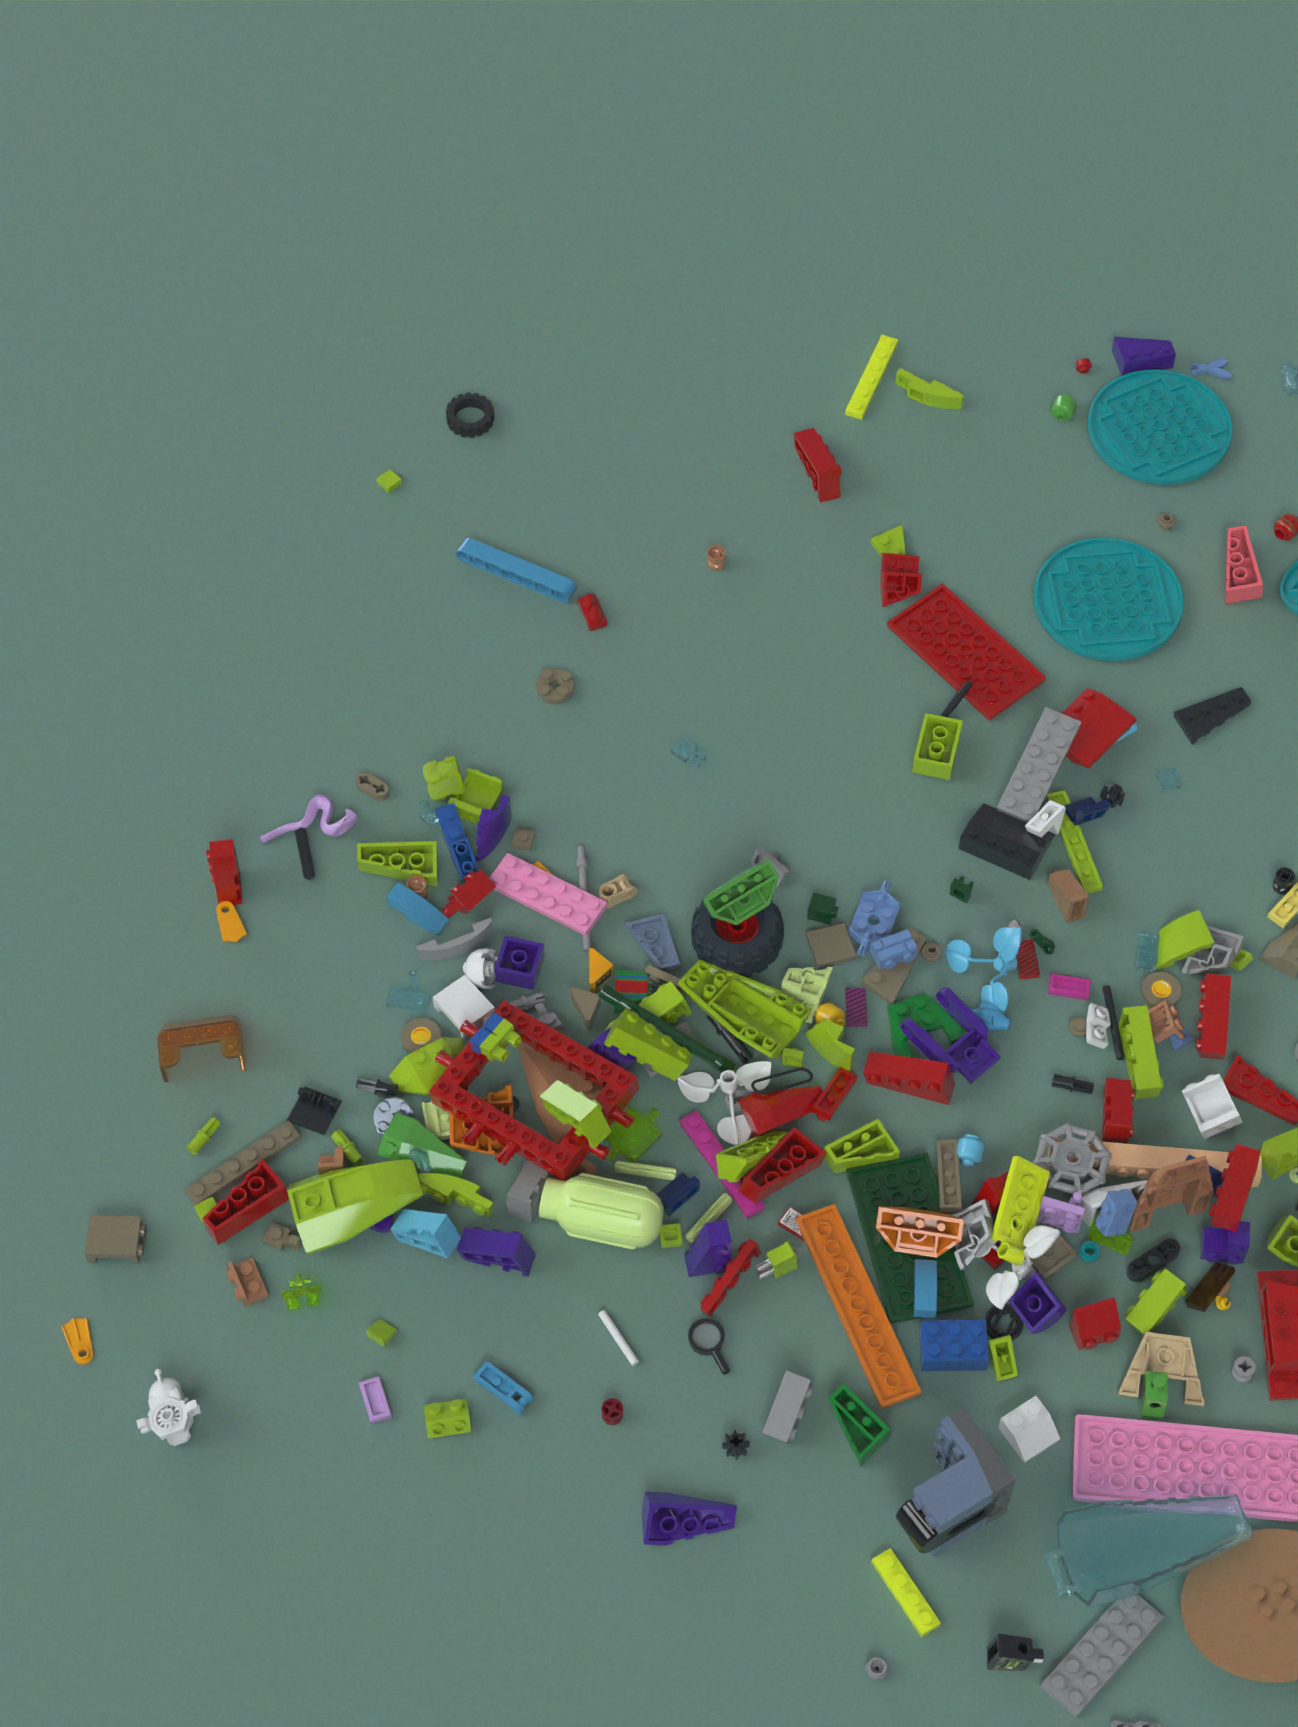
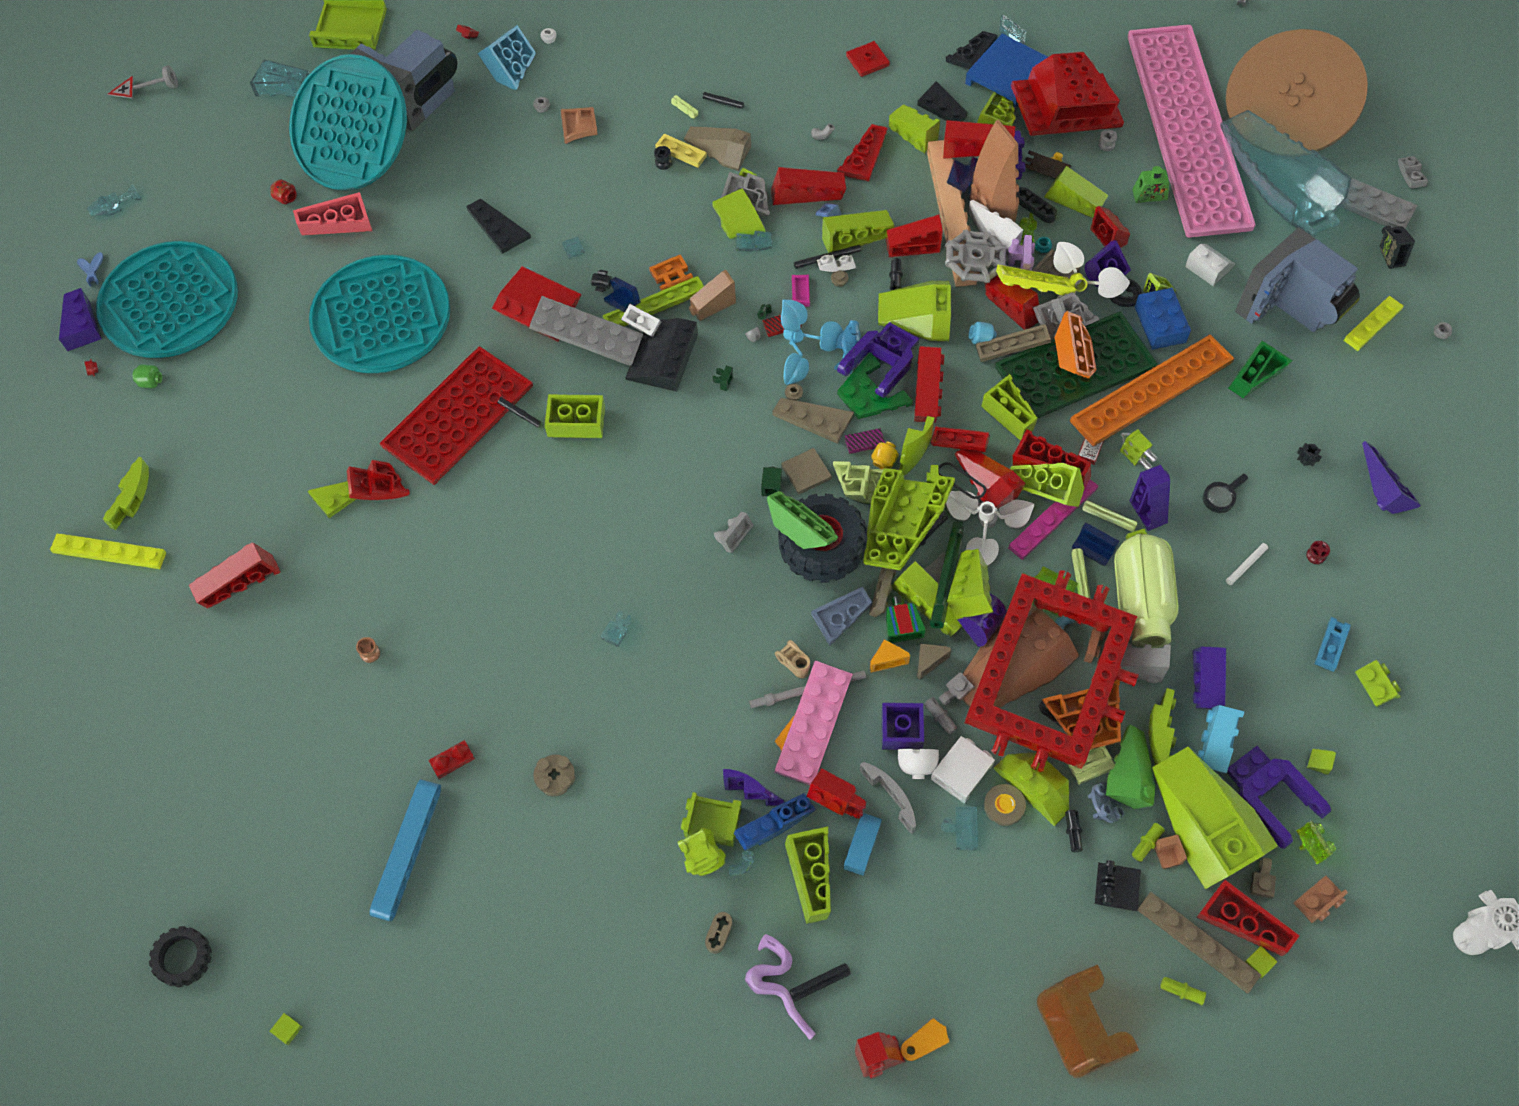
camera: 100 degrees left, 5 degrees up
(79, 1339) = (1441, 1052): light orange piece -> none
(115, 1237) = (1332, 1045): dark tan panel -> none
(375, 1400) = (1386, 750): lavender tile -> none
(382, 1263) = (1258, 775): none -> dark purple plate
(417, 885) = (839, 846): nougat wheel -> none
(421, 1157) = (1150, 760): clear light blue arm -> none
(494, 1037) = (1031, 704): lime hips -> none
(523, 839) = (751, 763): dark tan plate -> none
(576, 1110) = (1083, 609): lime wedge -> none
(731, 1276) = (1178, 488): red wing -> none
(788, 1407) = (1262, 419): light grey wedge -> none
(878, 906) = (758, 435): medium blue plate -> none
(893, 950) = (807, 412): medium blue brick -> none
(925, 1288) = (1125, 339): dark azure slope -> none
(1018, 1092) = (918, 309): none -> lime wedge
(1116, 1212) = (1019, 213): medium blue brick -> none
(1119, 862) = (668, 269): none -> orange plate
(1160, 987) = (787, 228): dark tan tile -> none
(1165, 1021) = (814, 217): nougat bracket -> none
(1166, 521) = (282, 281): dark tan plate -> none
(1167, 1355) = (1122, 185): tan wing -> none
(1211, 1106) = (892, 179): white panel -> none

